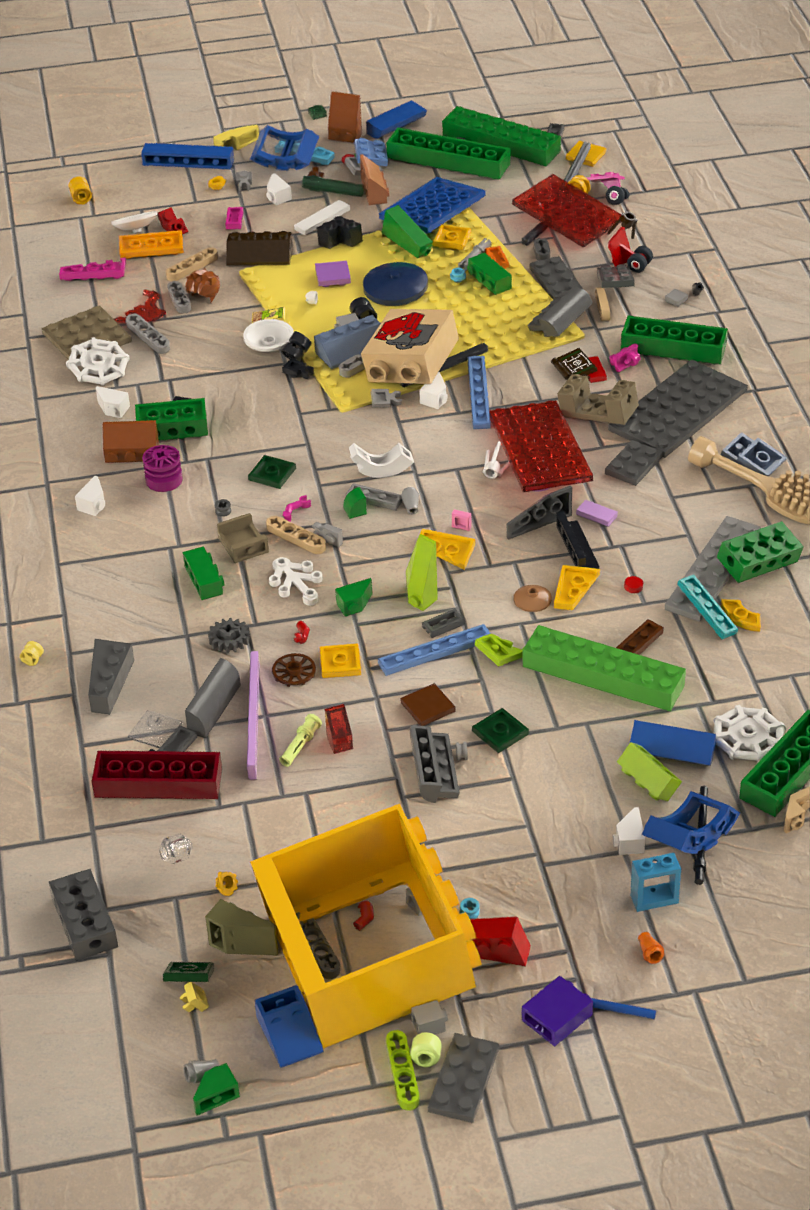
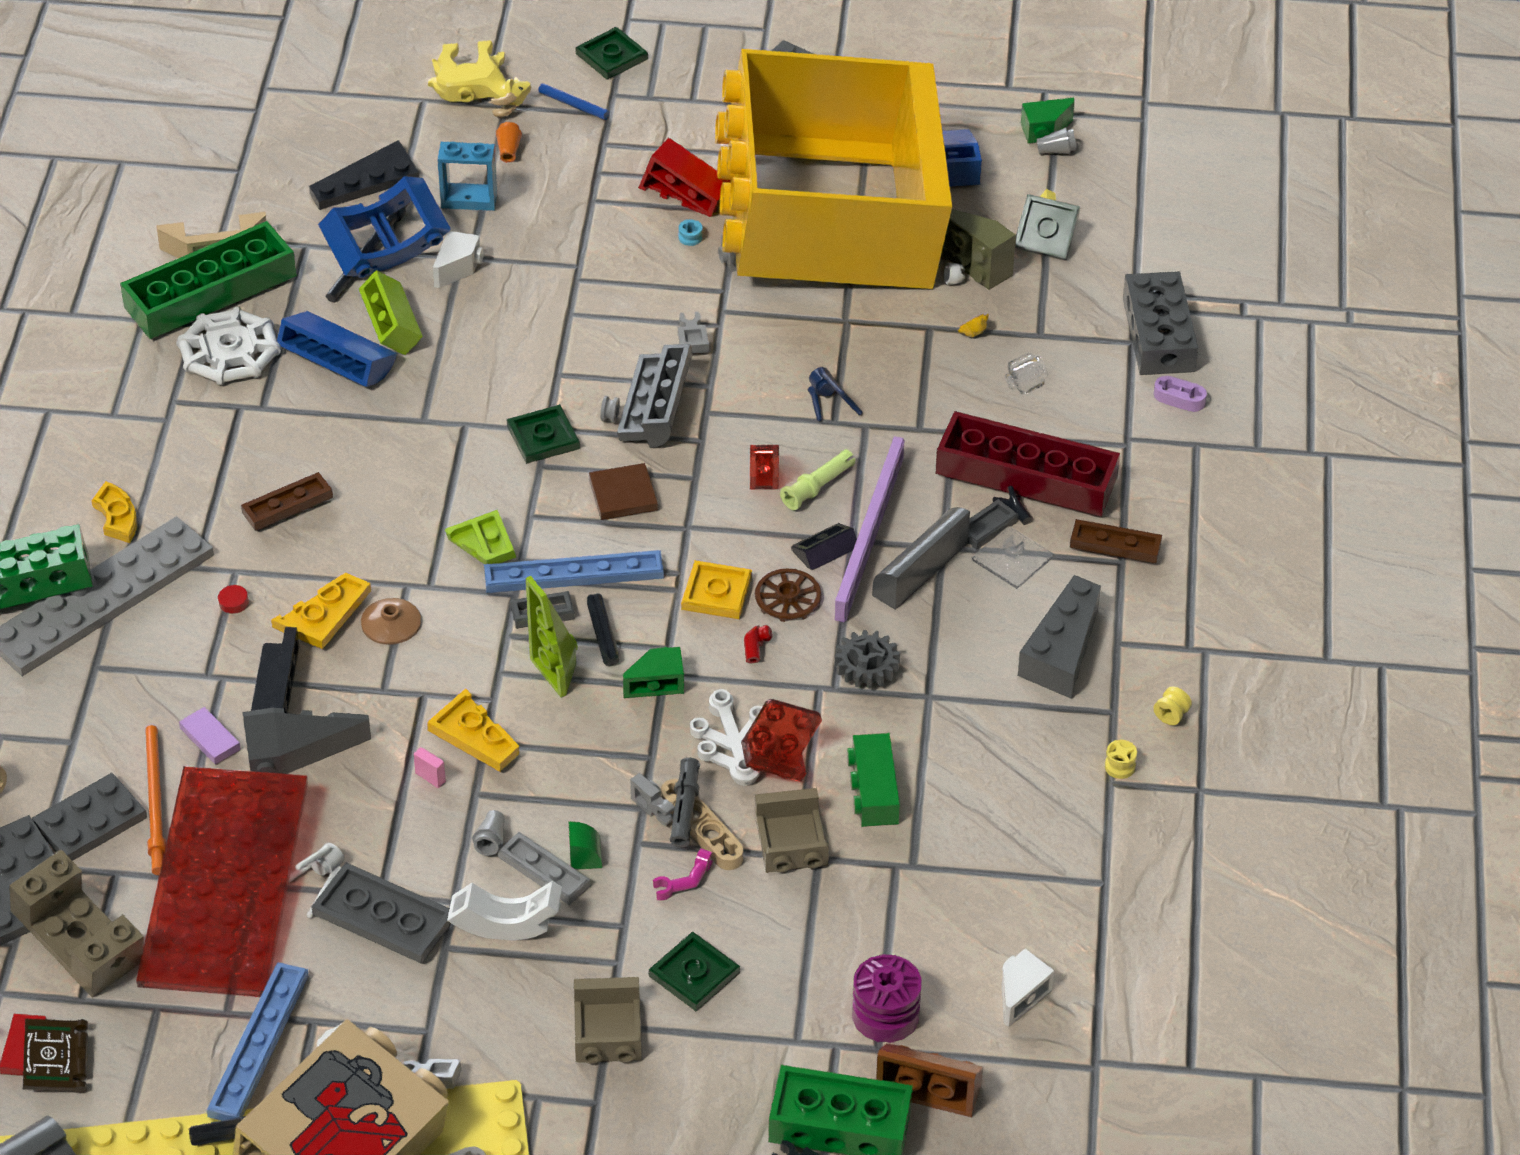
camera: 165 degrees left, 5 degrees up
(57, 868) = (1180, 393): none -> lavender beam
(58, 619) = (1126, 754): none -> light yellow wheel
(84, 747) = (1116, 541): none -> reddish brown plate
(222, 507) = (803, 921): dark grey bush -> none
(263, 564) = (779, 738): none -> clear red bracket
(281, 704) = (825, 546): none -> black slope
(306, 436) = (607, 1020): none -> dark tan panel
(307, 532) = (686, 791): none -> dark grey pin
(320, 806) = (824, 384): none -> dark blue plant
(400, 619) = (602, 629): none -> black axle
(430, 820) = (693, 333): none -> light grey plate
(448, 454) = (382, 912): none -> dark grey plate
(557, 1010) = (646, 105): dark purple brick -> none
(604, 668) = (361, 468): bright green brick -> none
(607, 480) = (156, 843): none -> orange bar
(615, 1069) = (611, 53): none -> dark green tile
(707, 606) = (160, 515): teal tile -> none
(708, 996) = (478, 79): none -> light yellow animal
(737, 897) = (364, 177): none -> black wing

